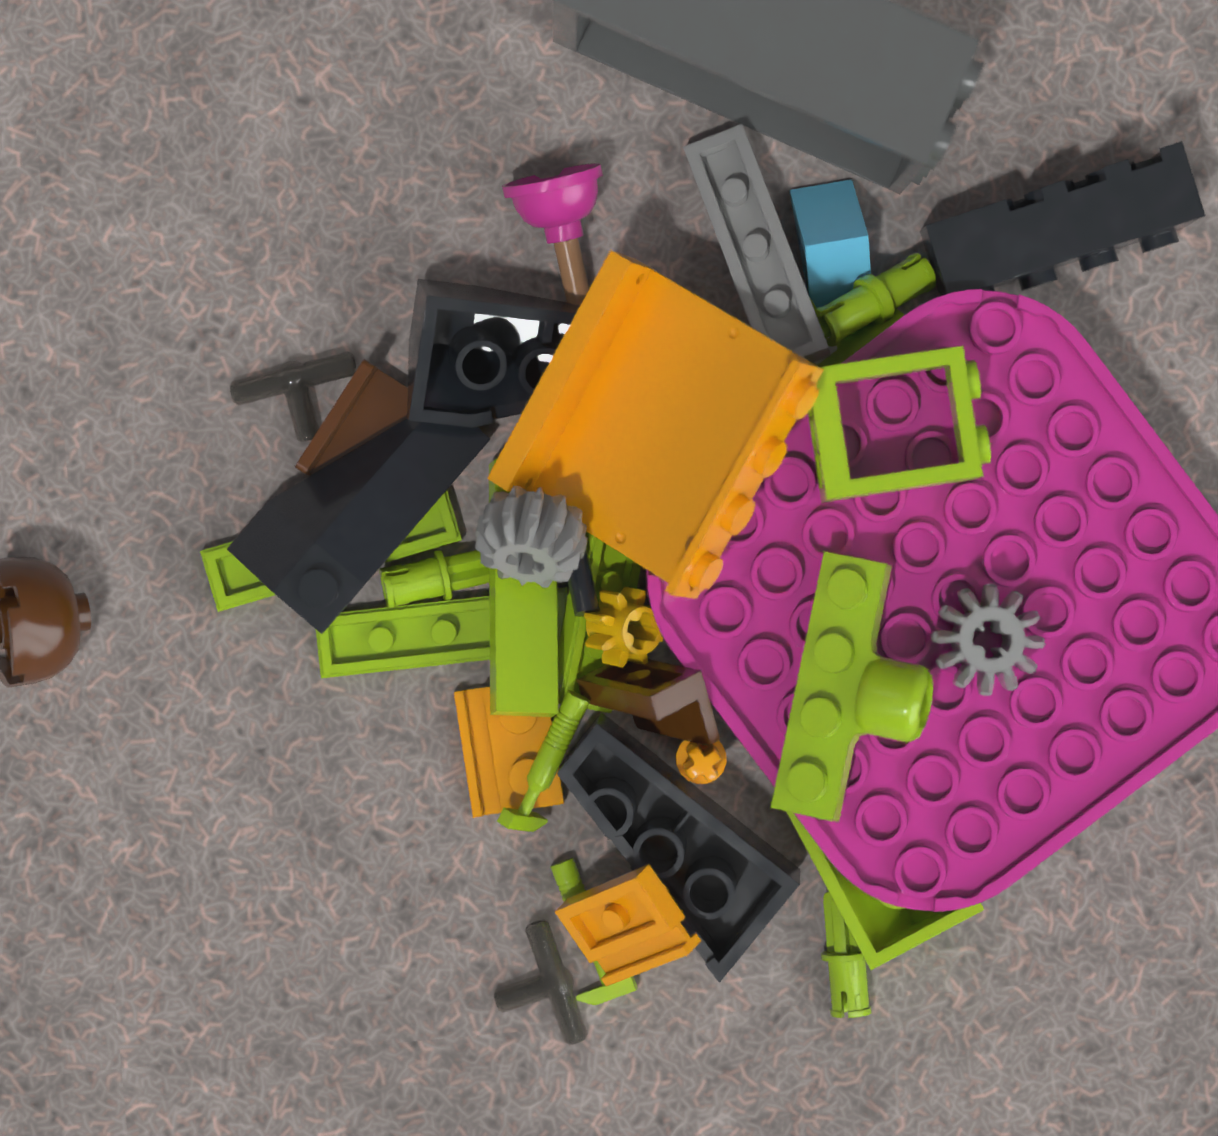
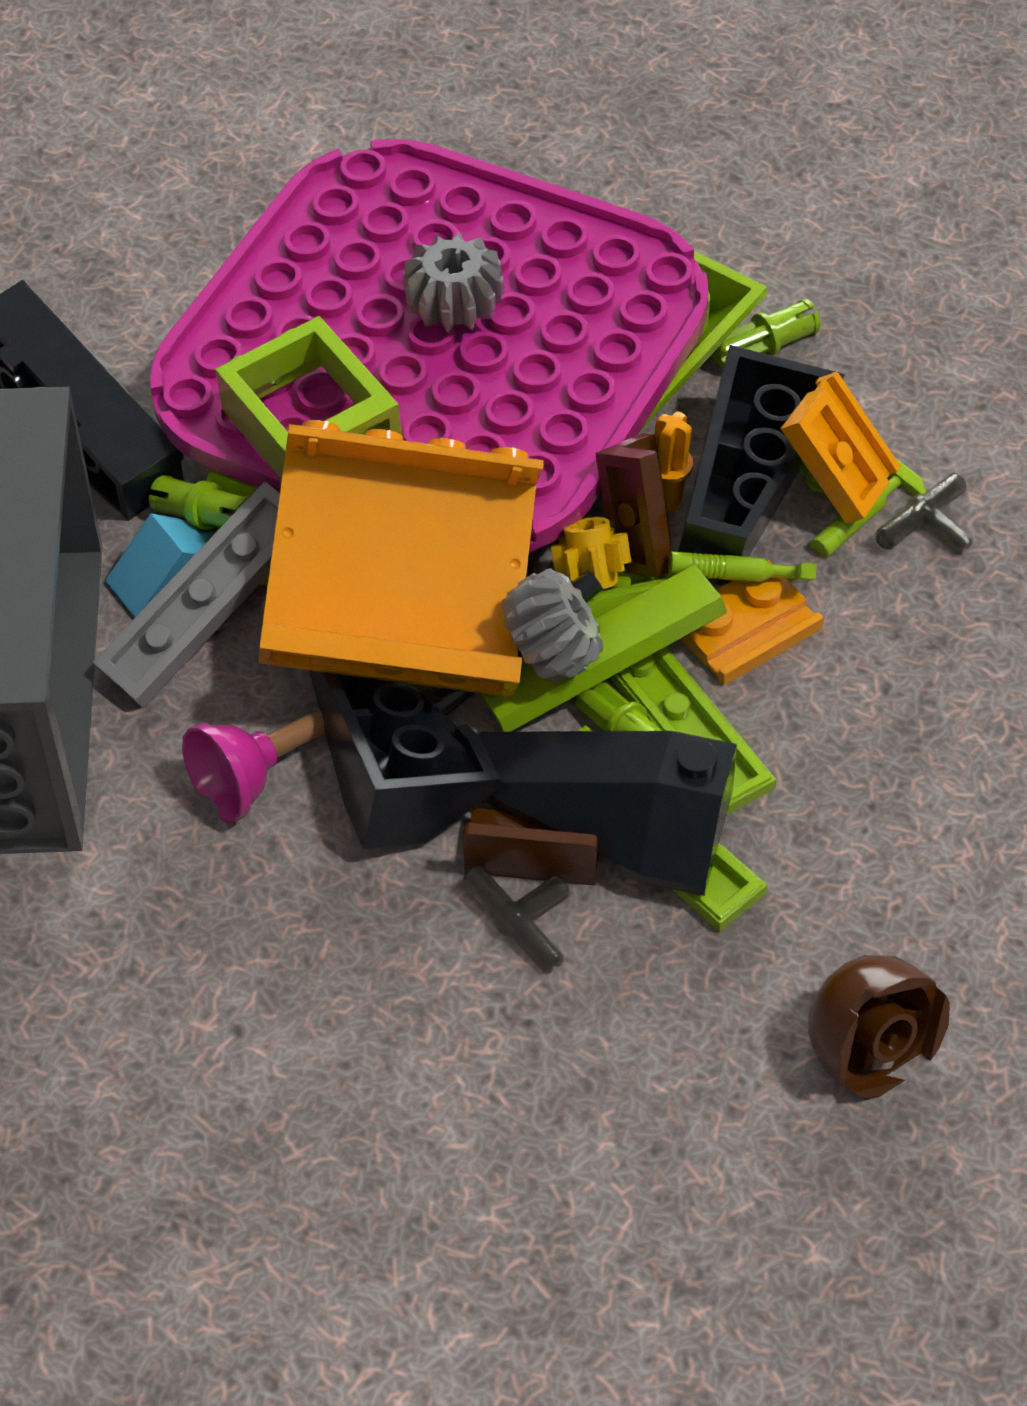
camera: 110 degrees left, 35 degrees down
(845, 689) = (550, 354): lime plate -> none

